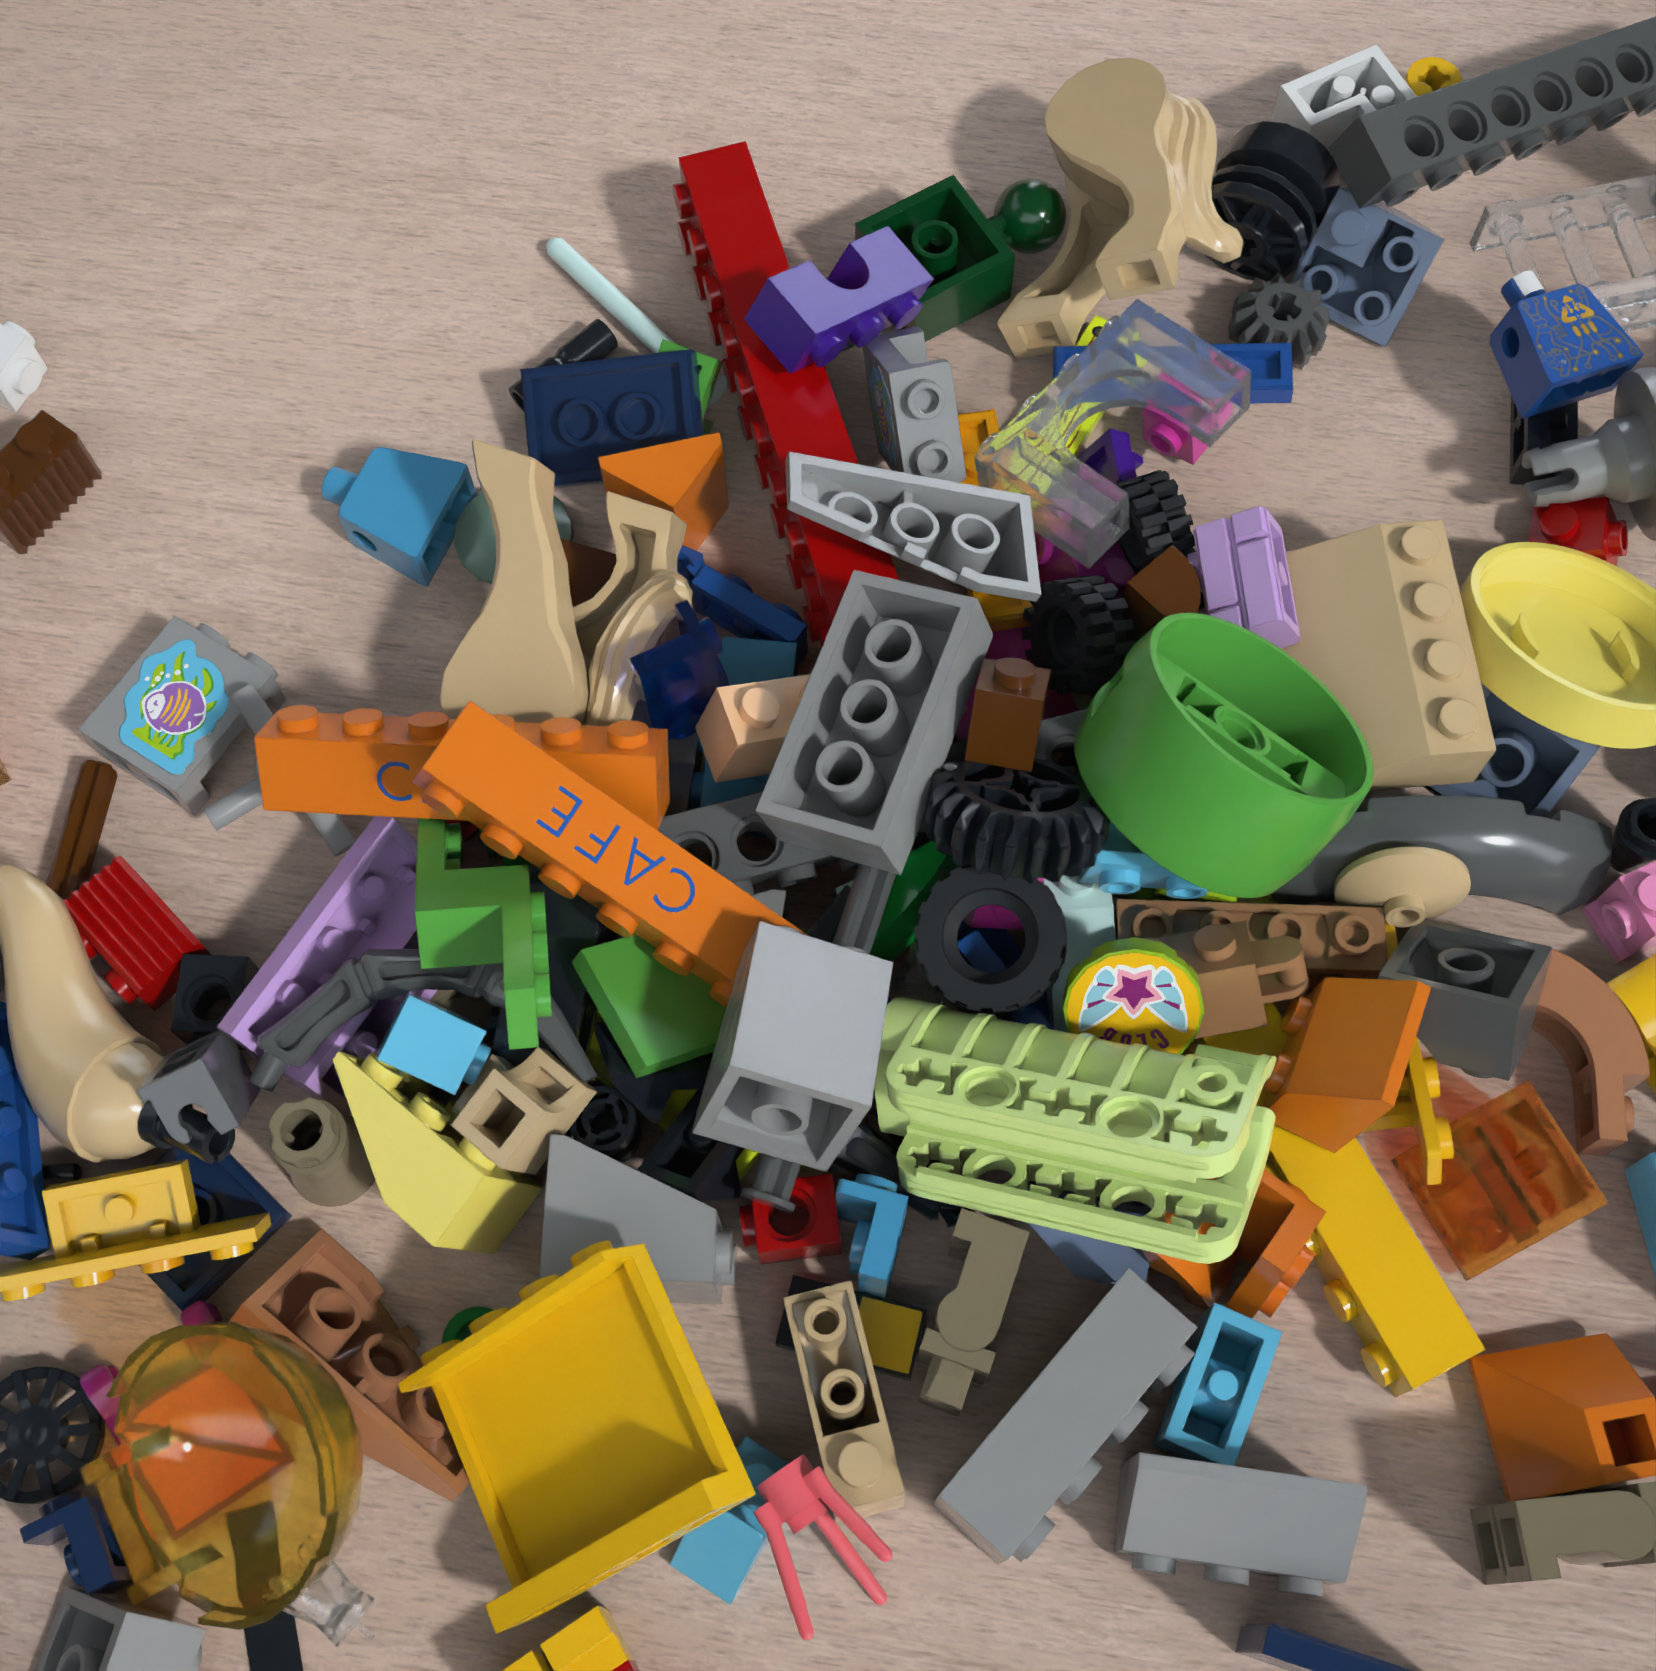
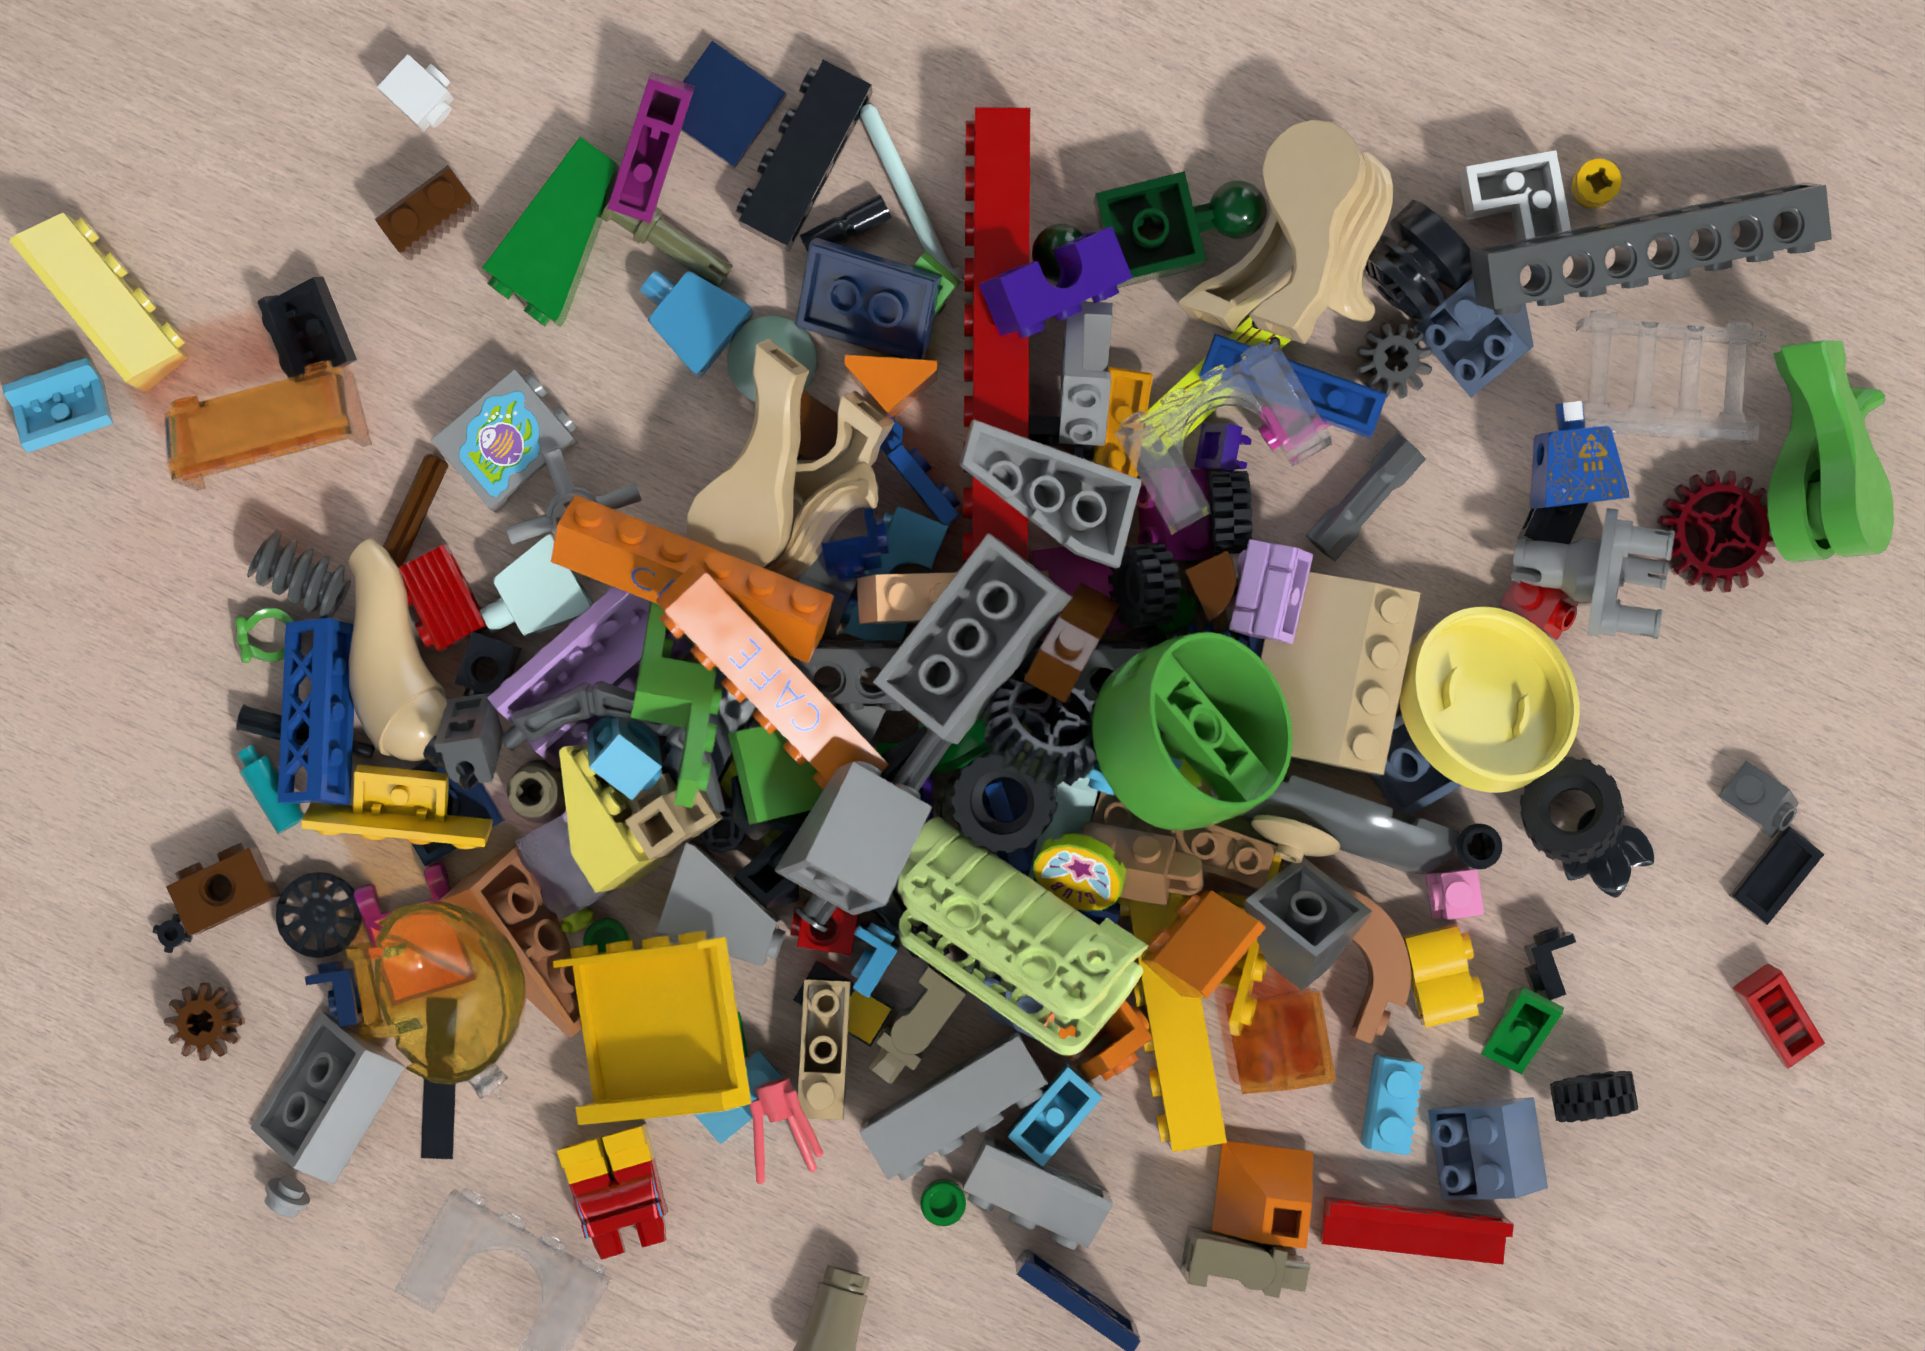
camera: 15 degrees right, 20 degrees up
(199, 465) = (554, 235): none -> green slope
(260, 883) = (536, 593): none -> light aqua torso
(294, 319) = (651, 147): none -> magenta slope
(319, 428) = (674, 244): none -> olive pin
(379, 284) = (728, 104): none -> dark blue tile
(379, 1249) = (549, 857): none -> clear purple brick
(427, 1322) = (578, 920): none -> lime piece
(490, 303) = (805, 154): none -> black brick
(1095, 1589) = (943, 1202): none -> green tile
(1322, 446) = (1344, 521): none -> dark grey axle

